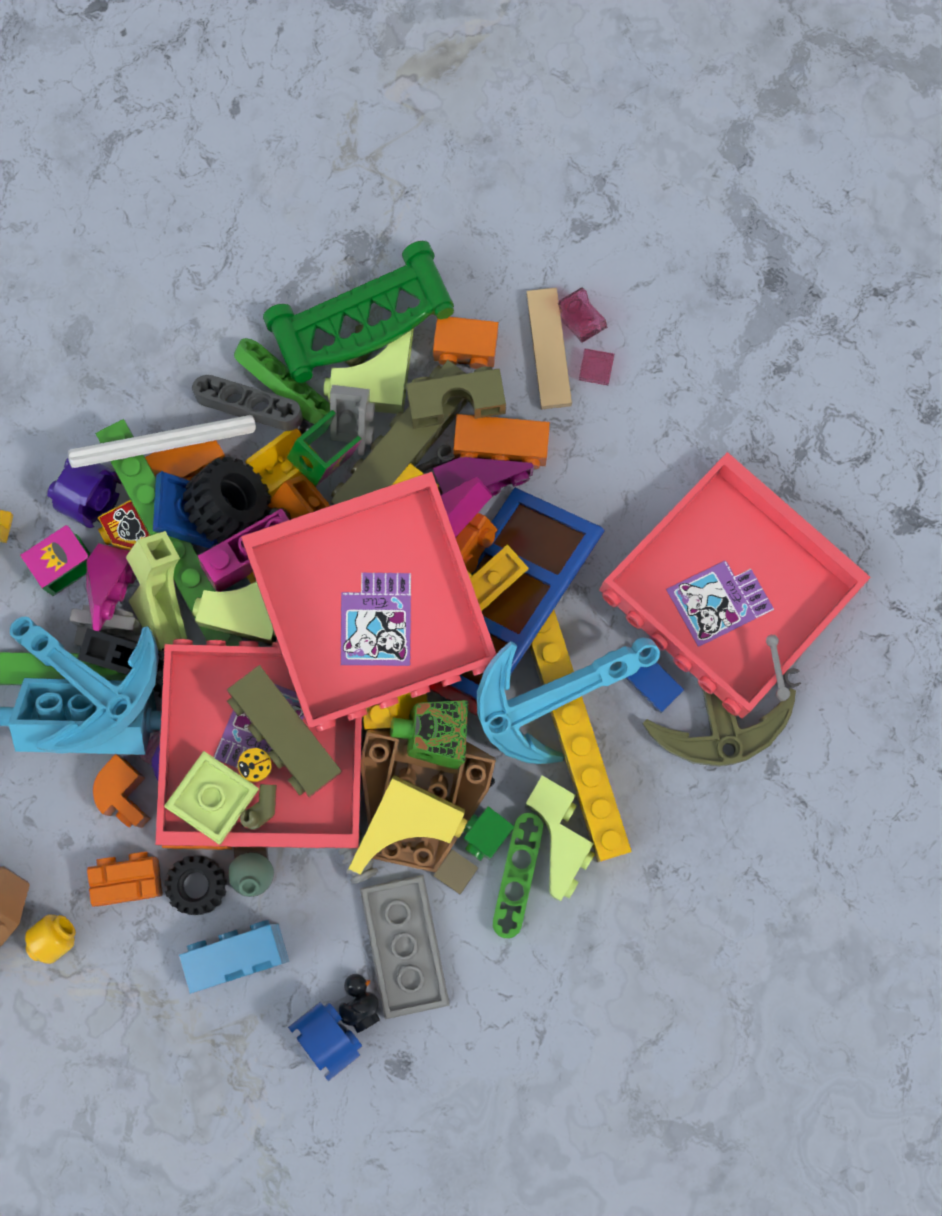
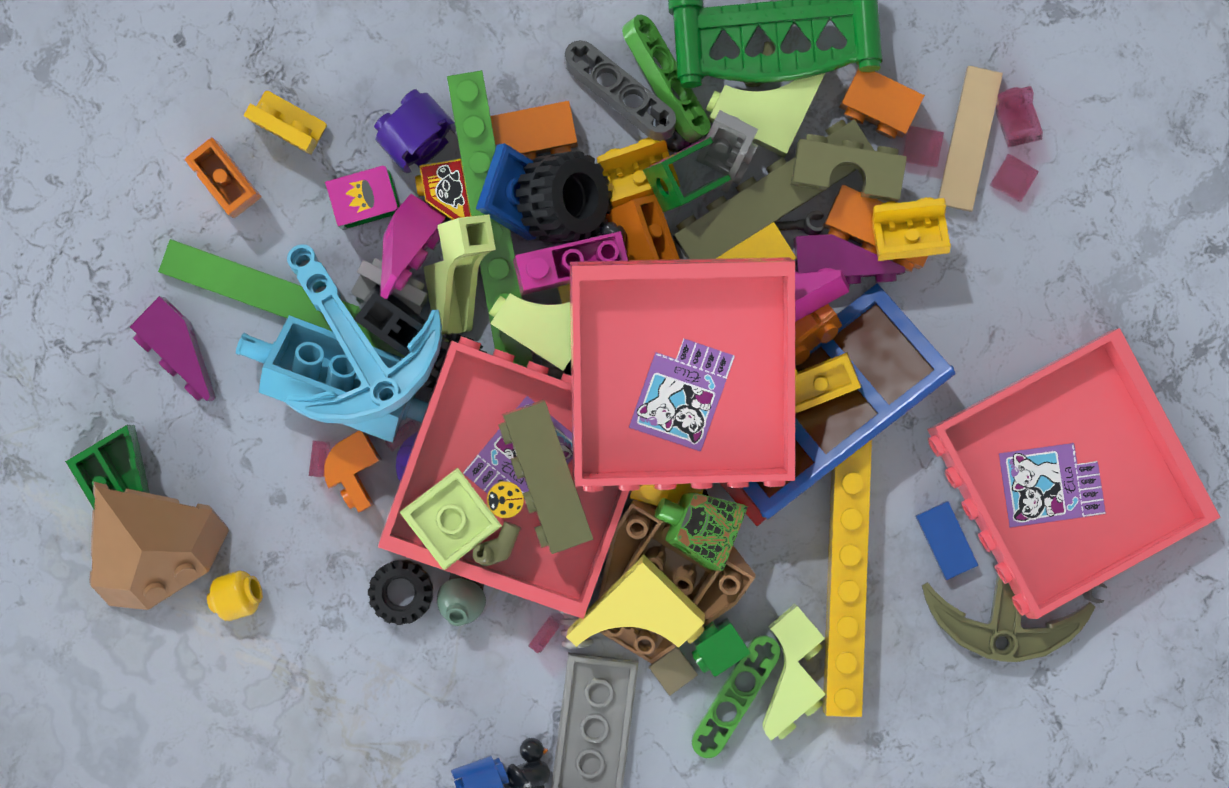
camera: 20 degrees right, 10 degrees up
(85, 788) = (319, 453): none -> clear pink tile
(125, 880) = (329, 562): orange brick -> none
(161, 441) = (516, 110): white axle -> none
(233, 956) = (417, 679): dark azure wedge -> none
(332, 878) = (544, 634): none -> clear pink tile
(513, 366) = (923, 146): none -> clear pink tile
(520, 710) = (778, 536): medium azure piece -> none
(524, 427) = (910, 229): none -> yellow bracket
(782, 693) = (1079, 611): light grey hinge -> none

